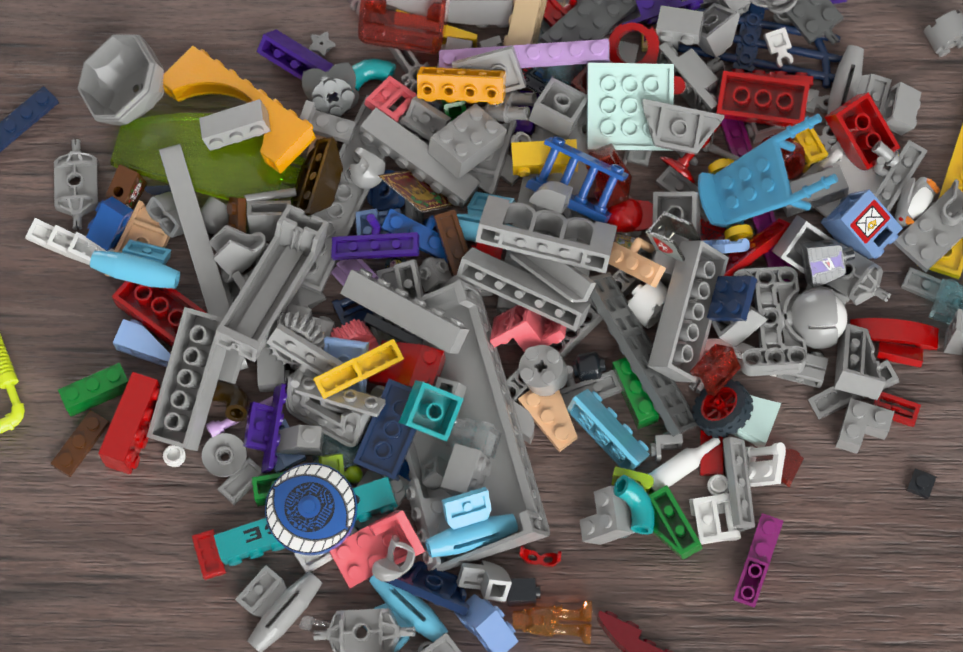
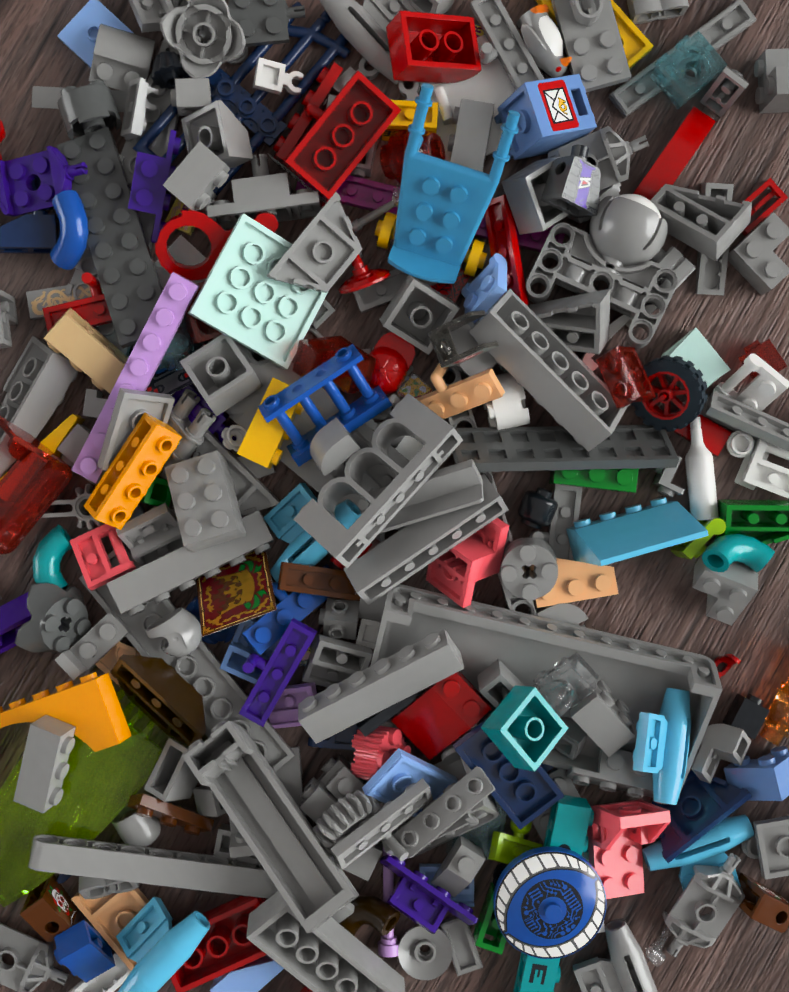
camera: 60 degrees left, 20 degrees up
(236, 250) = (199, 835): light grey piece -> none
(271, 195) = (150, 757): light grey piece -> none
(358, 369) = (427, 781): yellow slope -> none
(386, 568) = (660, 857): light grey piece -> none
(732, 298) = (568, 314): dark blue plate -> none
(883, 151) = (476, 37): light grey pin -> none
(900, 353) = (704, 164): red tile -> none

